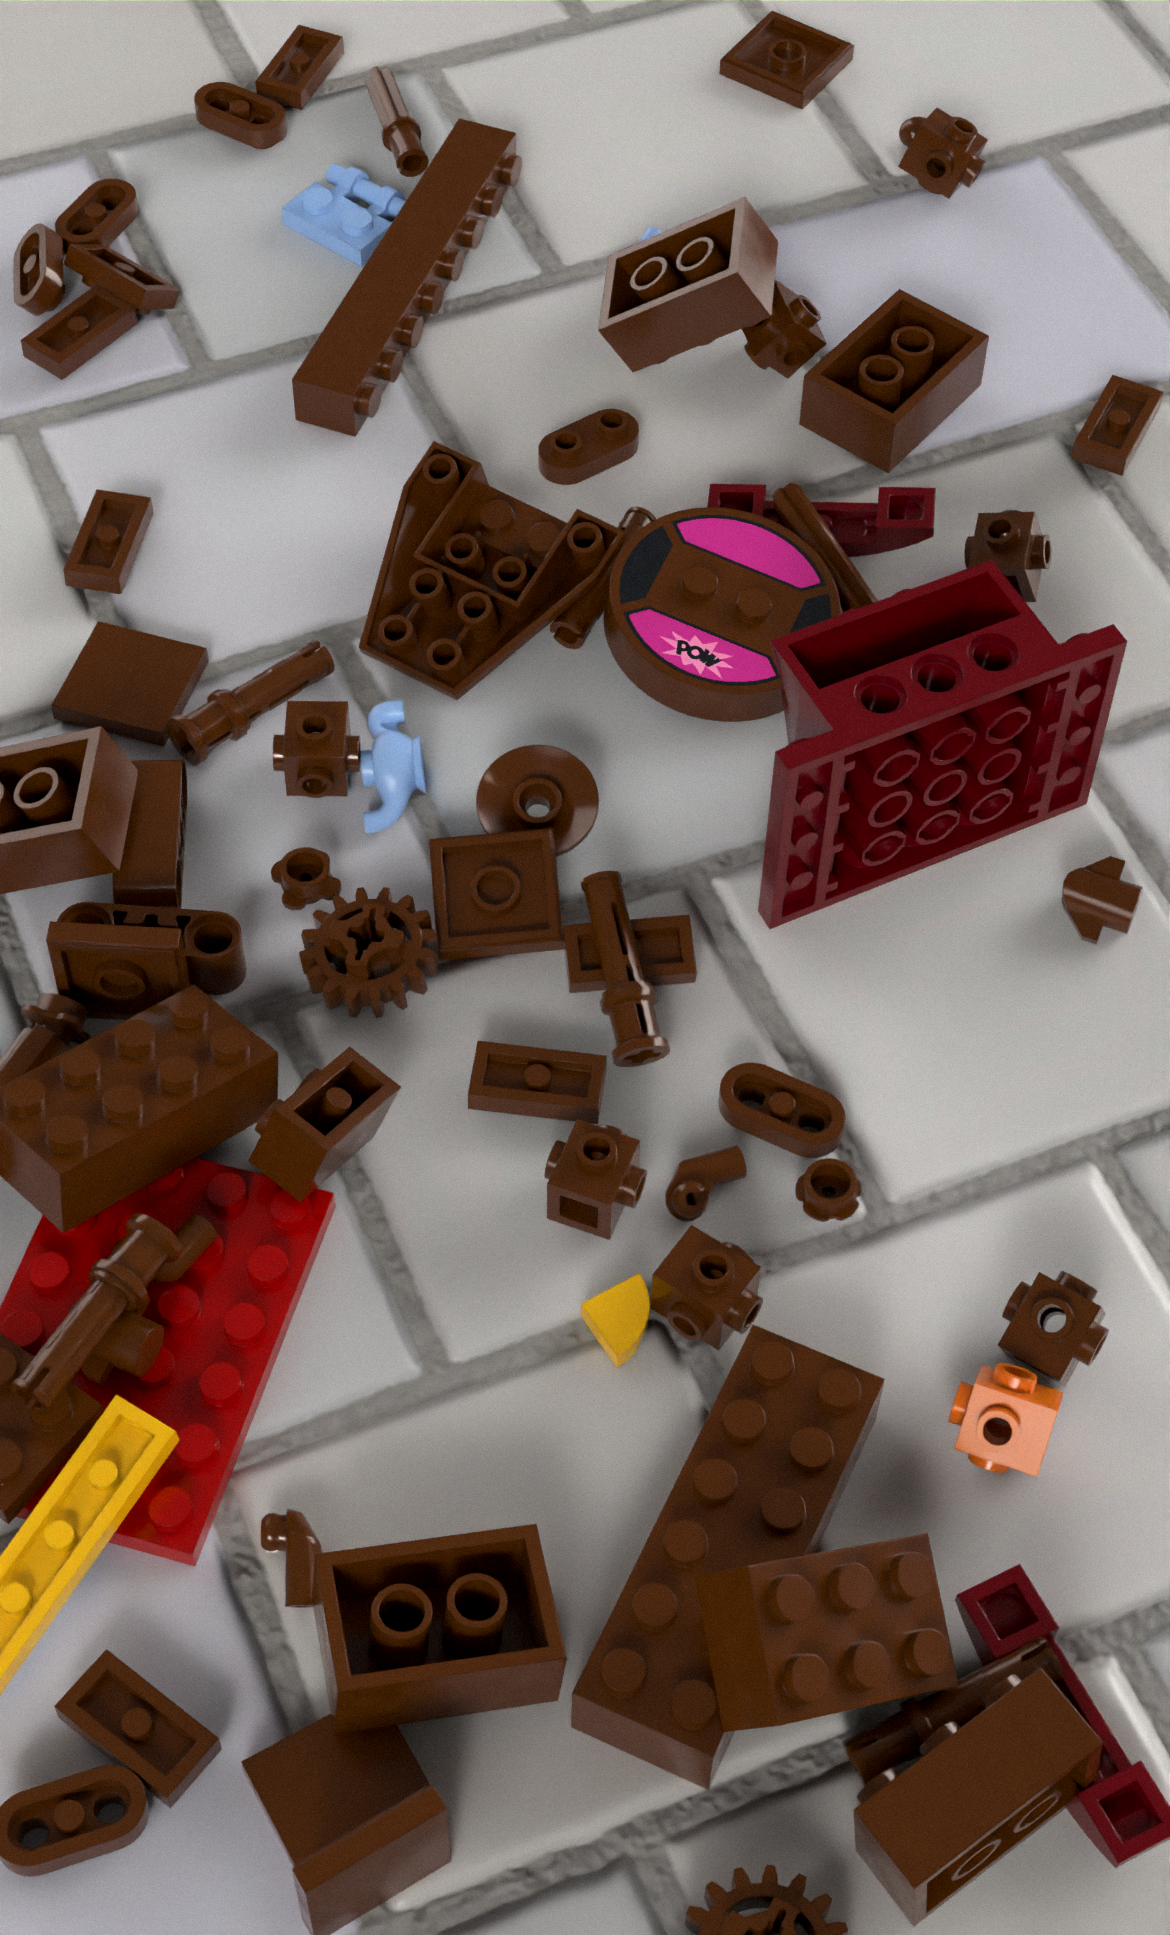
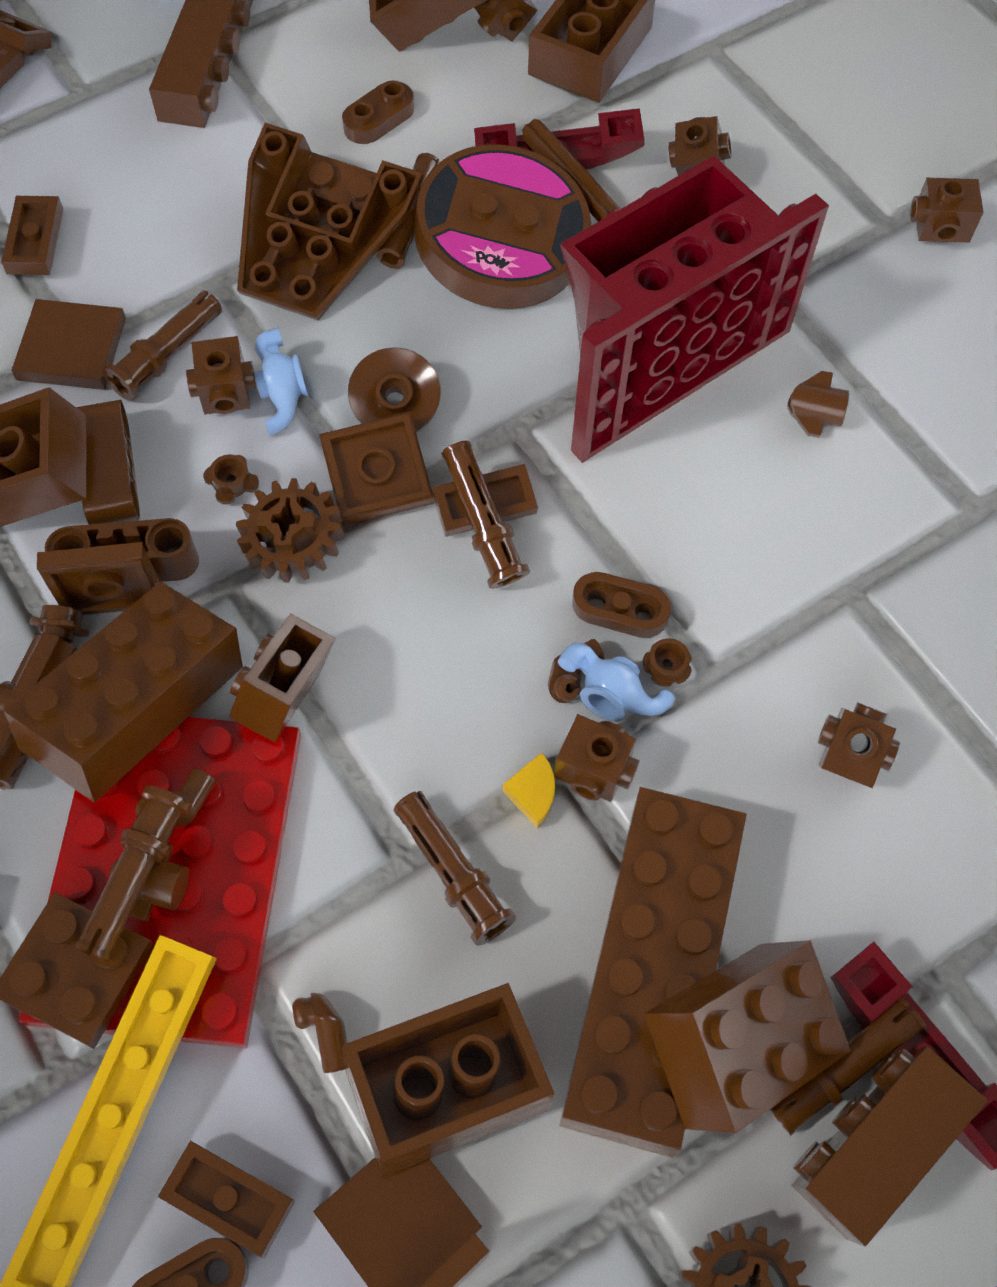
camera: 10 degrees left, 10 degrees up
(508, 1415) = (464, 885): none -> reddish brown pin
(537, 1082) = (435, 612): reddish brown plate -> none
(593, 1178) = (494, 684): reddish brown brick -> none
(749, 1205) = (612, 685): none -> light blue piece
(1005, 1419) = (838, 824): orange brick -> none
(1117, 425) = (755, 44): reddish brown plate -> none

